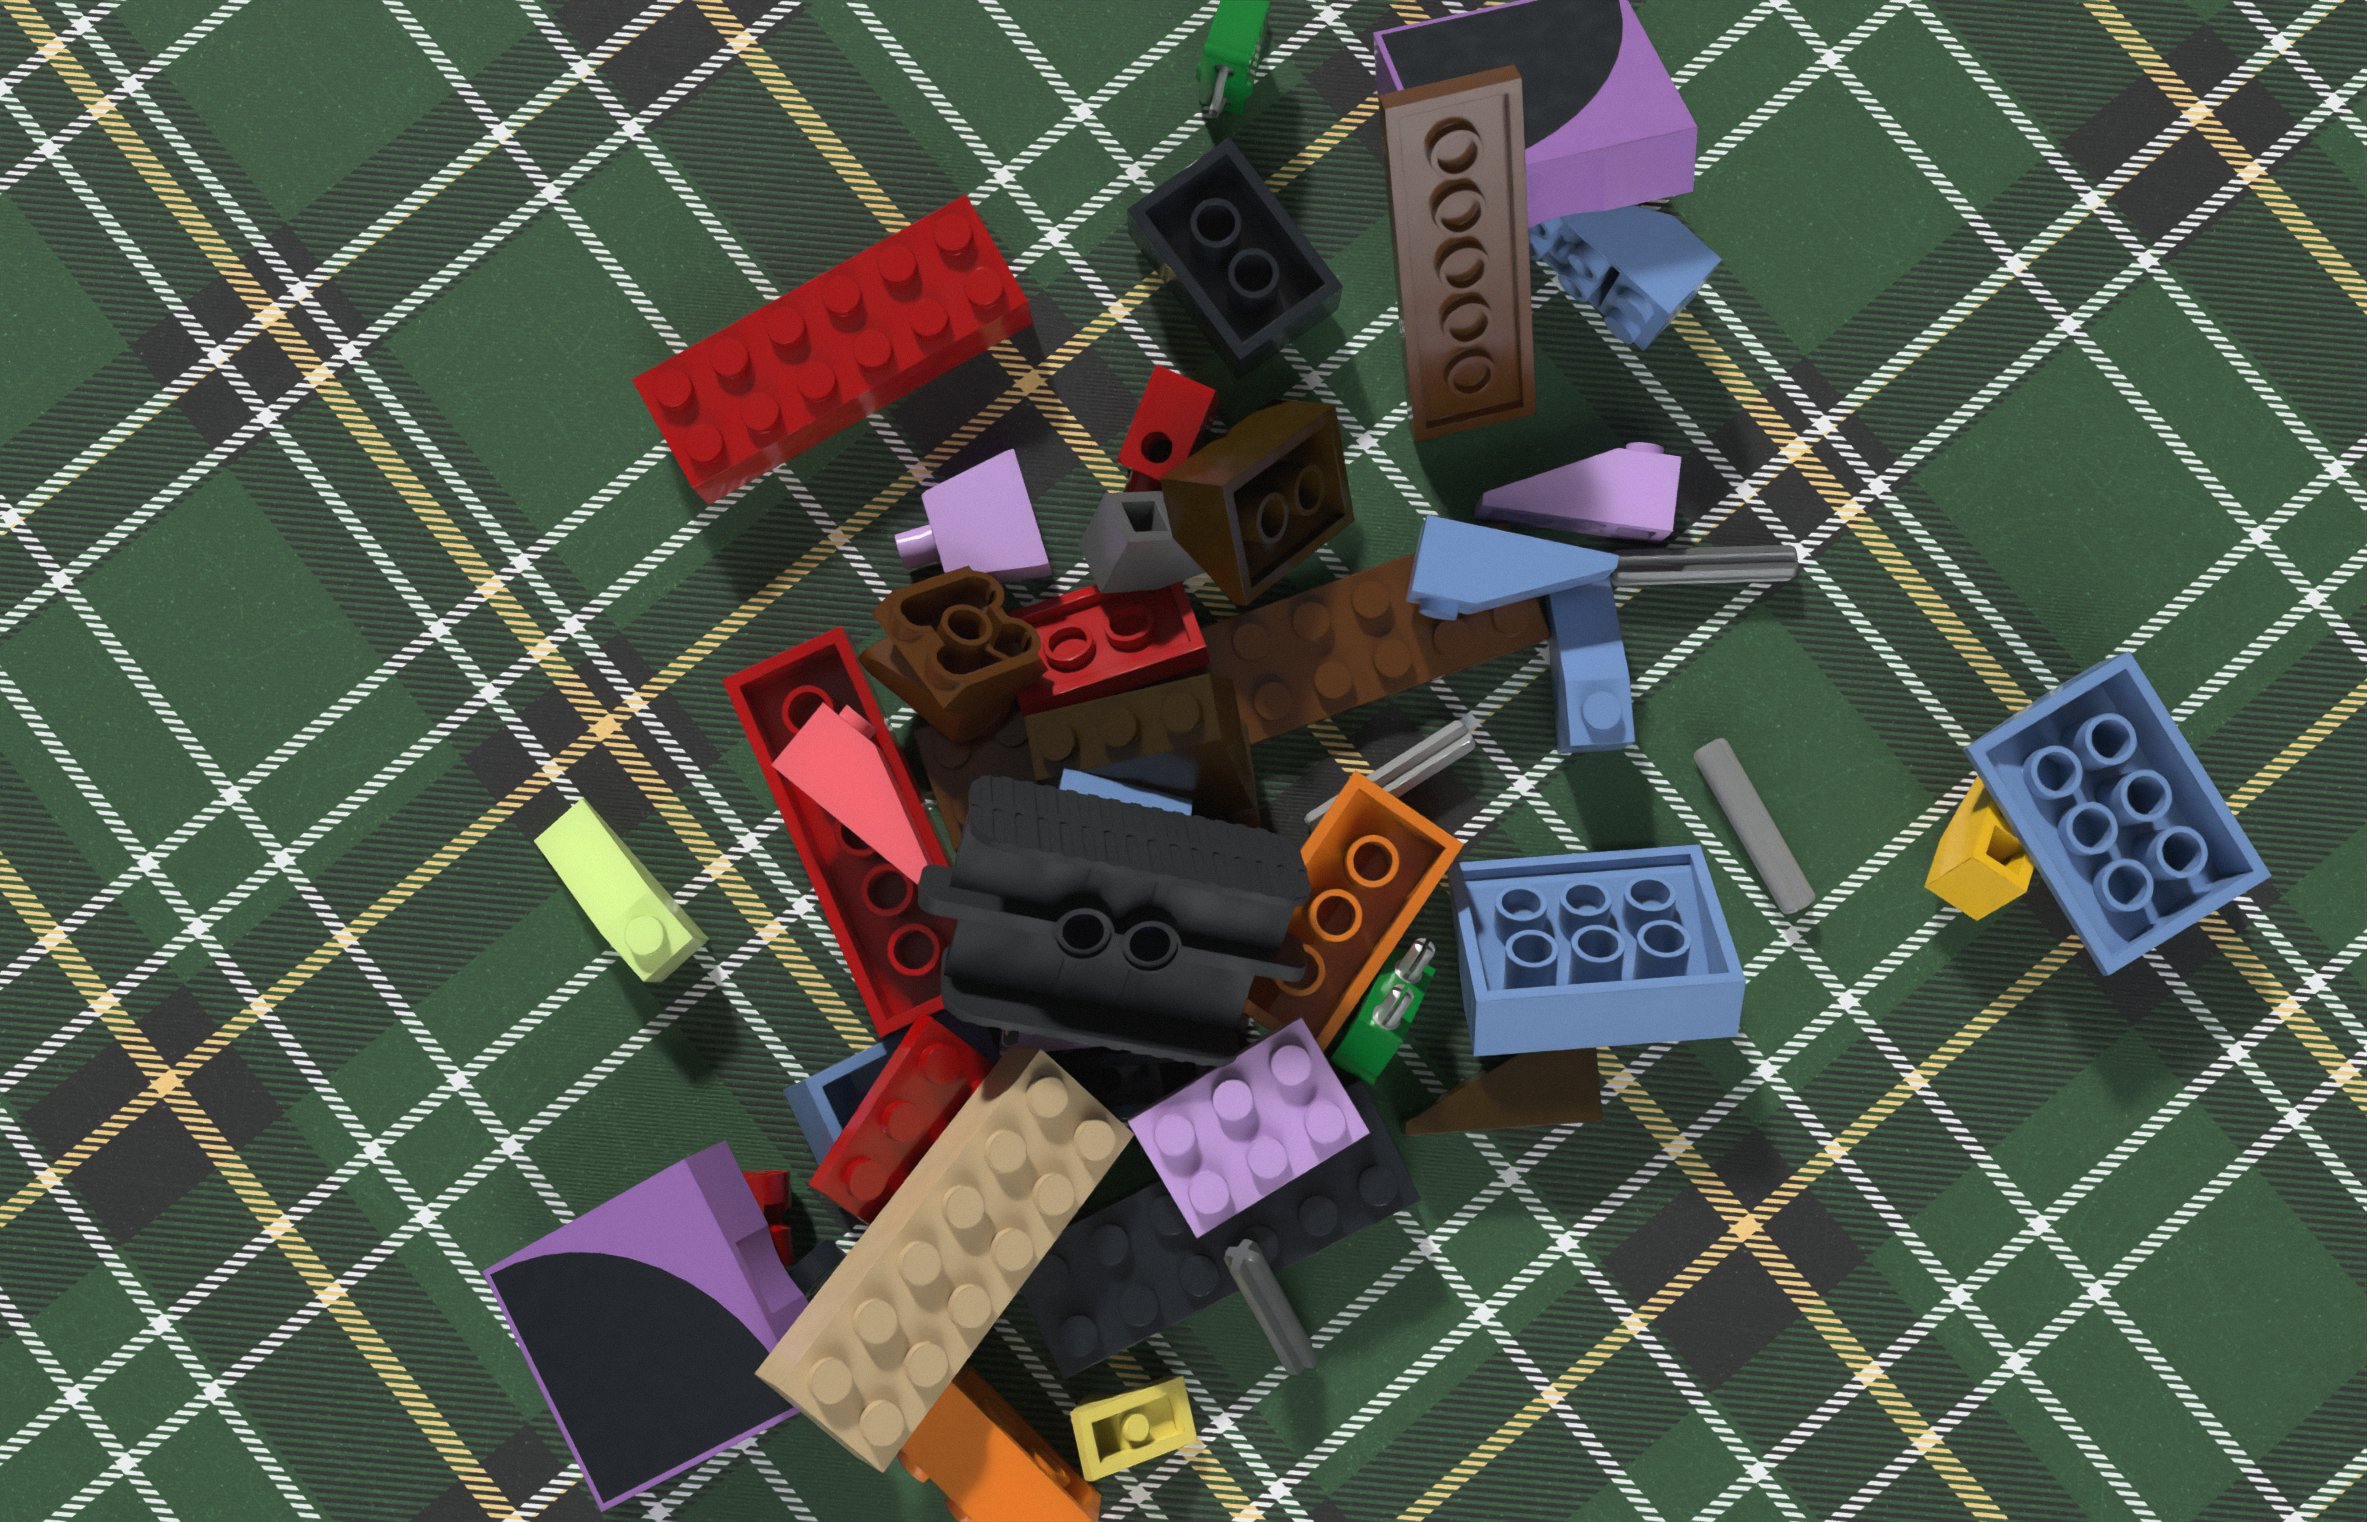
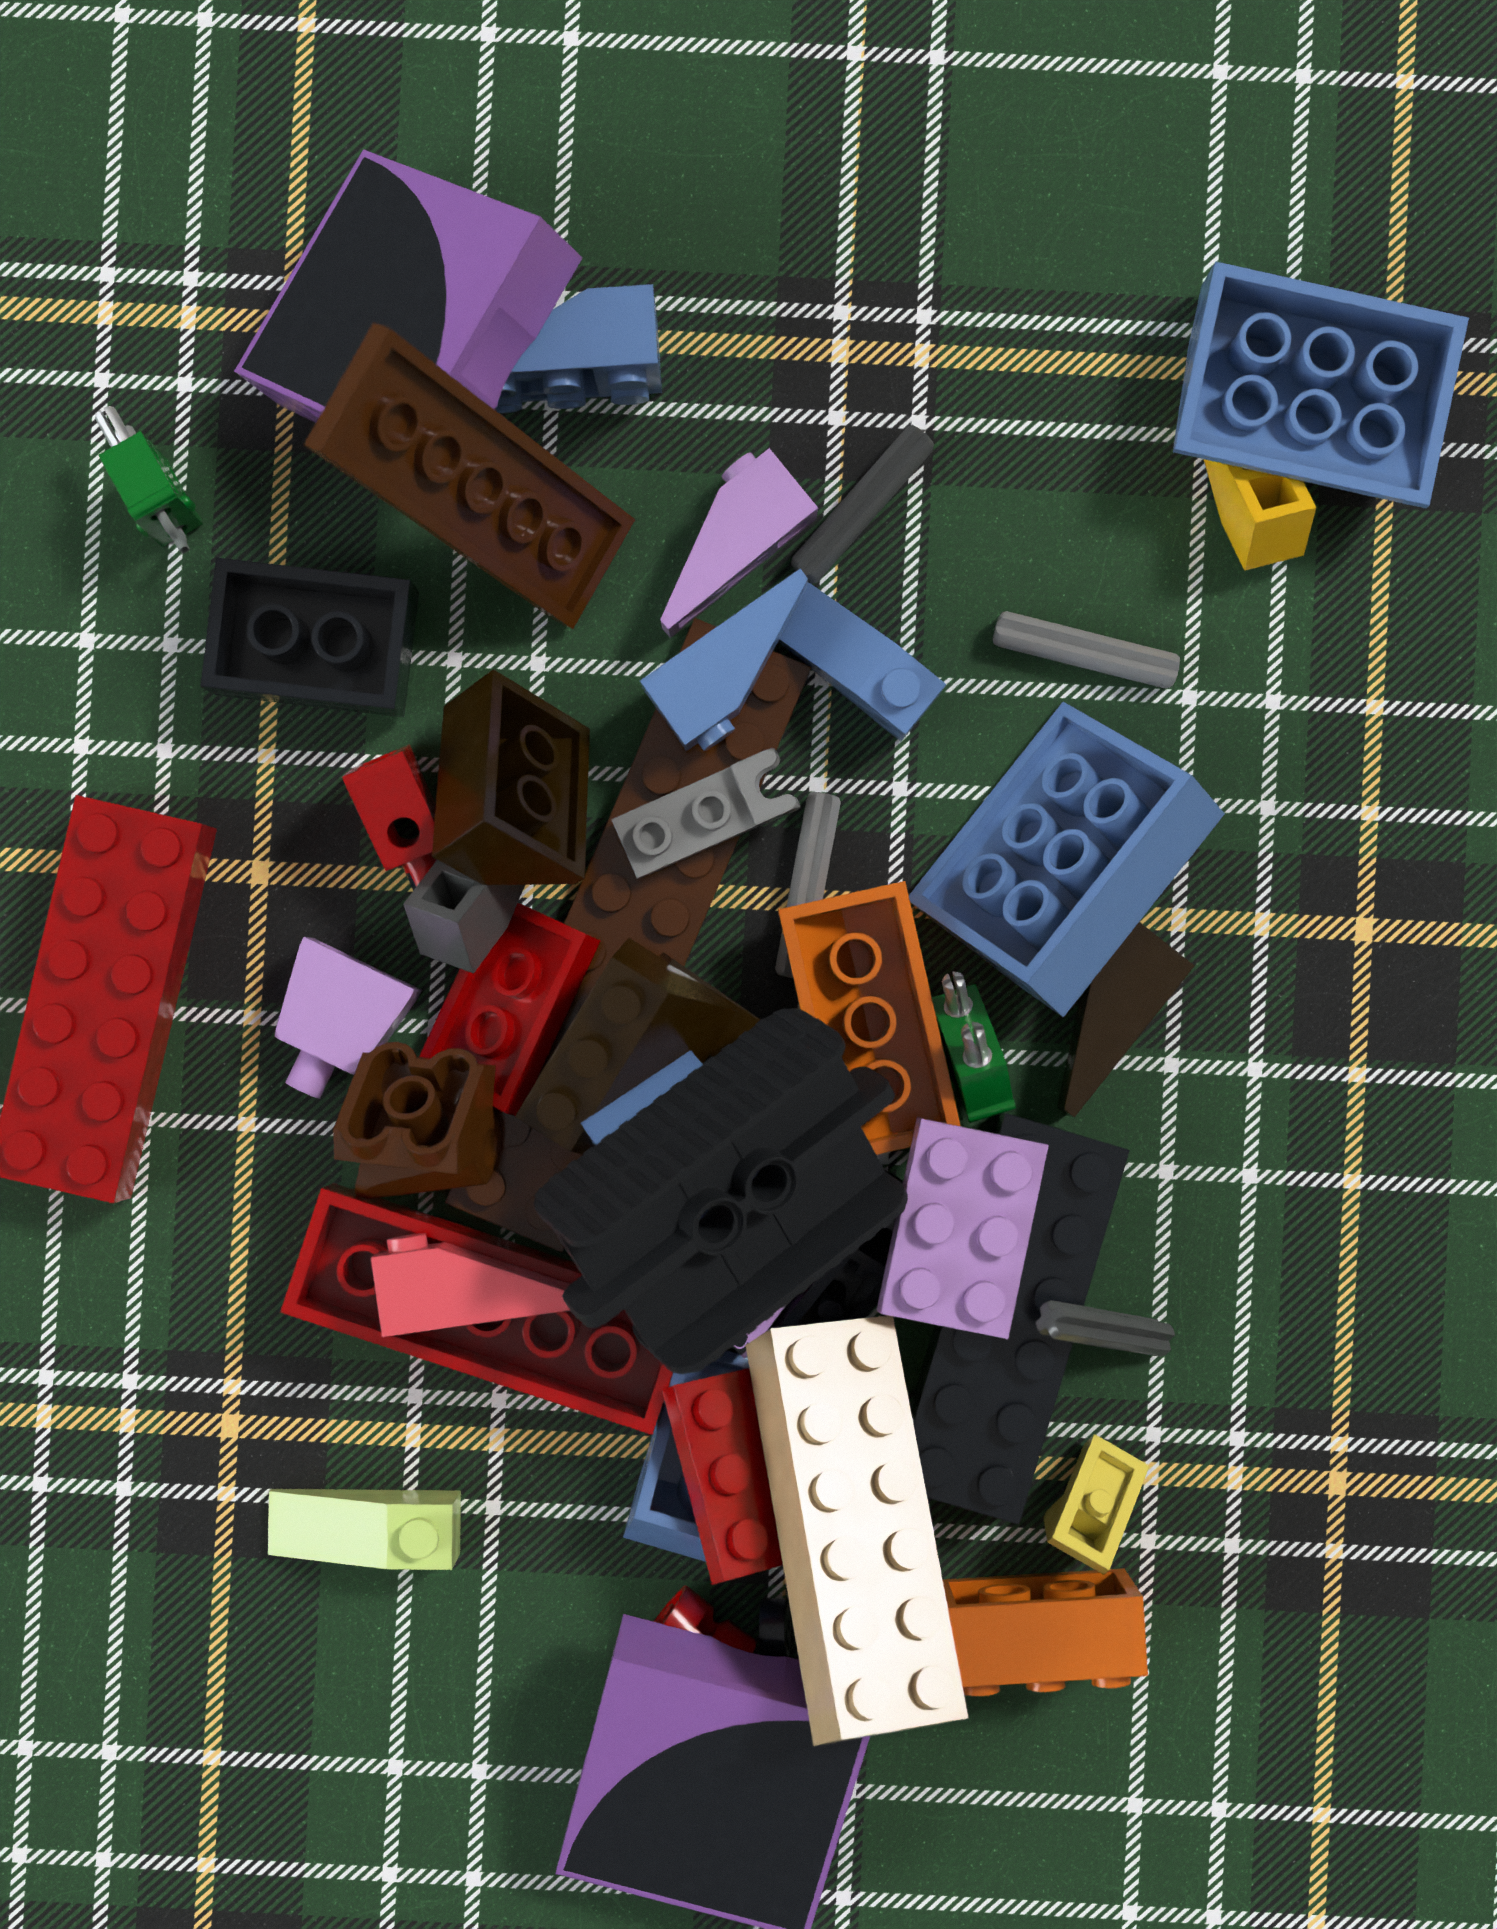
camera: 50 degrees left, 5 degrees up
(1371, 654) = (701, 815): none -> light grey plate

